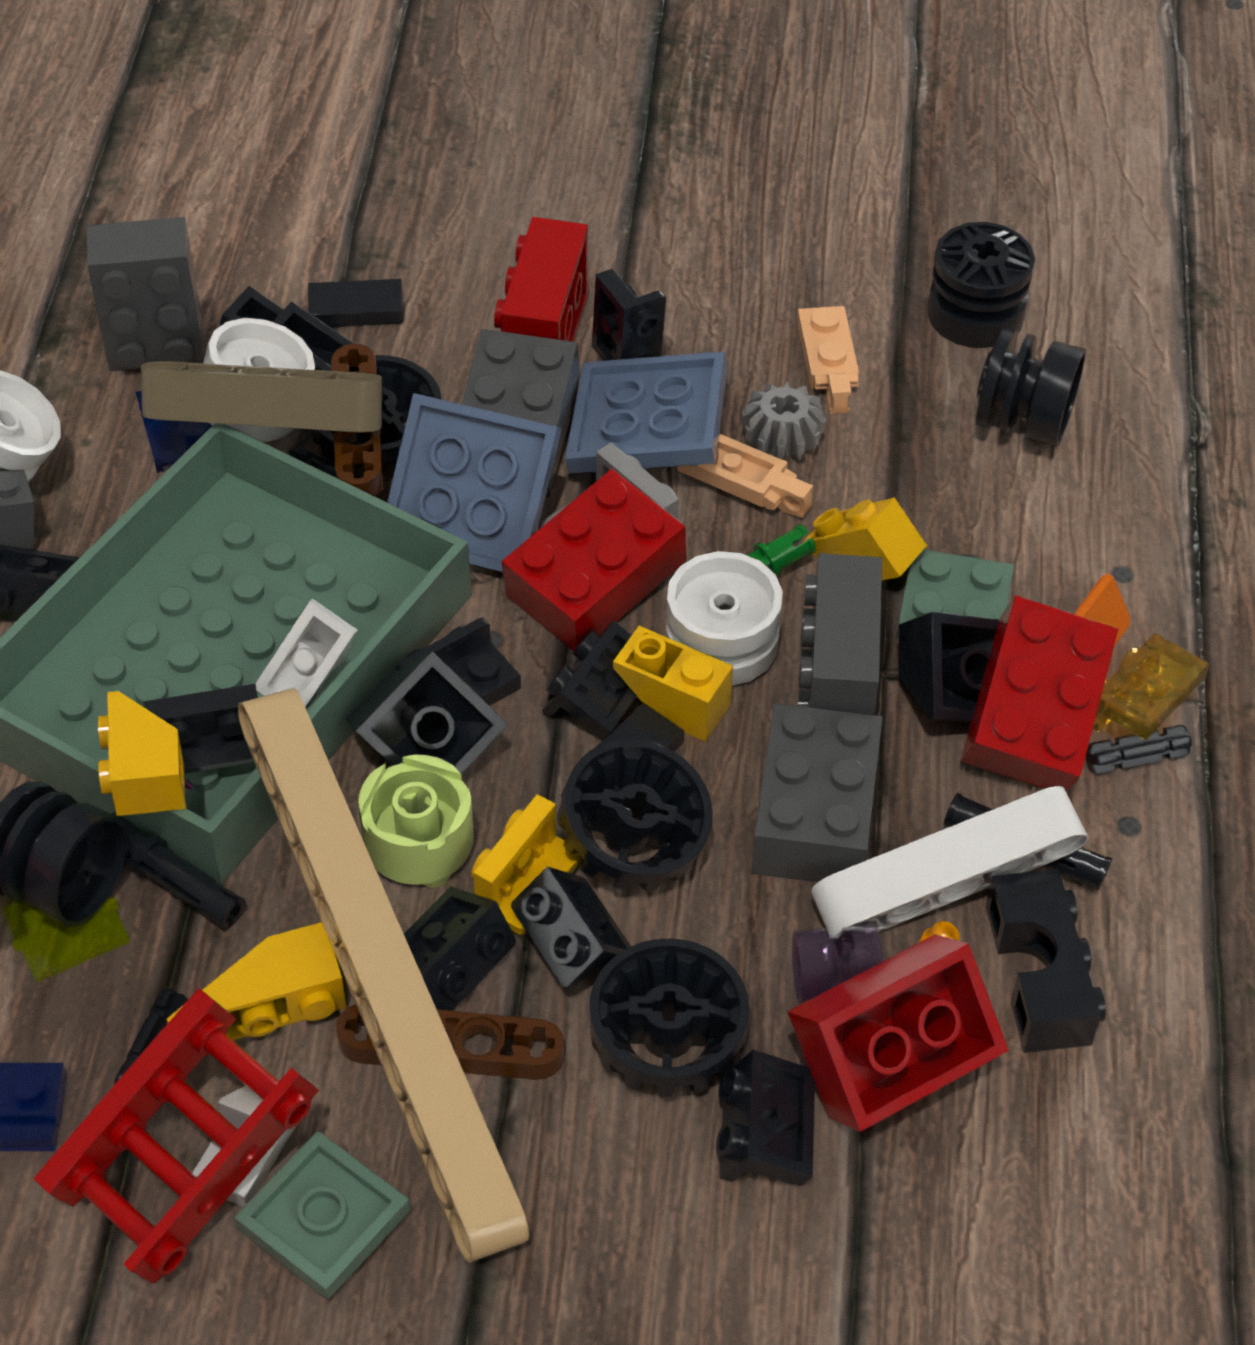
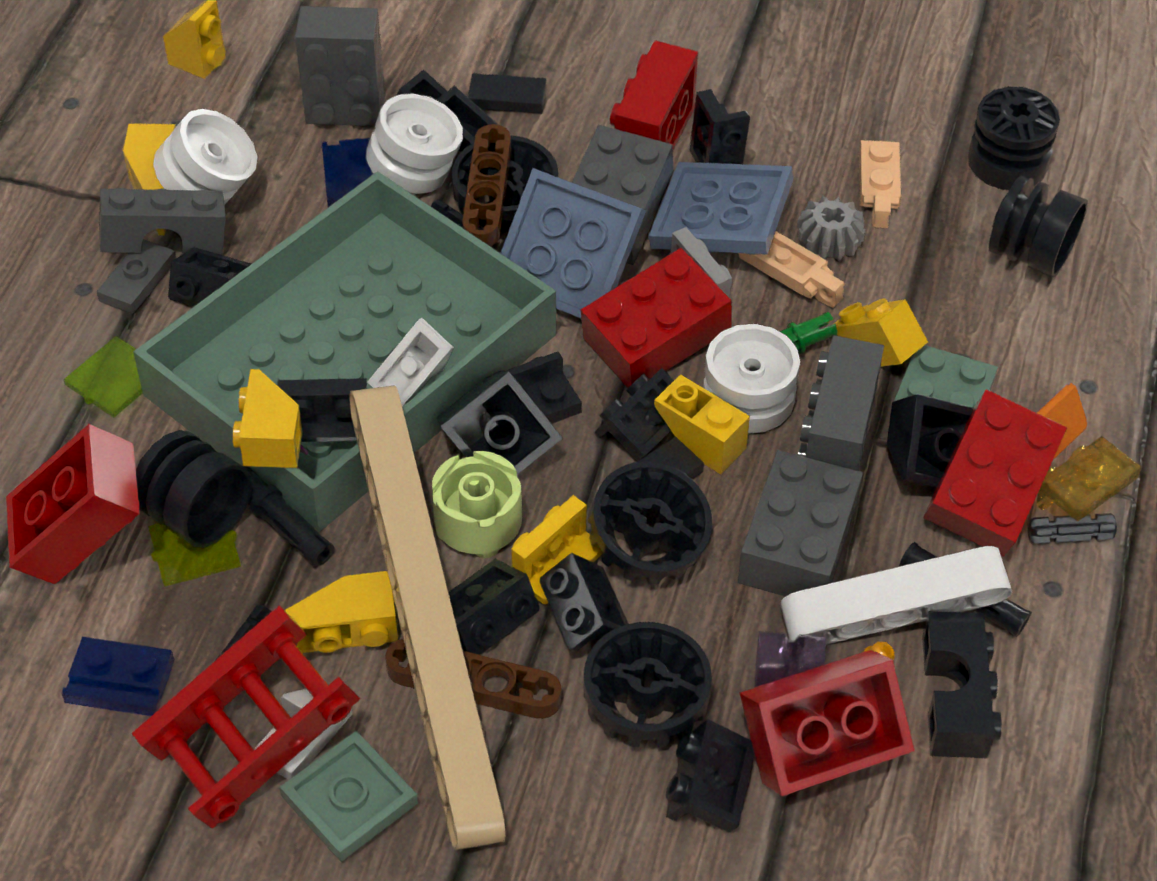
camera: 10 degrees right, 0 degrees up
(262, 396) = (414, 156): dark tan beam -> none

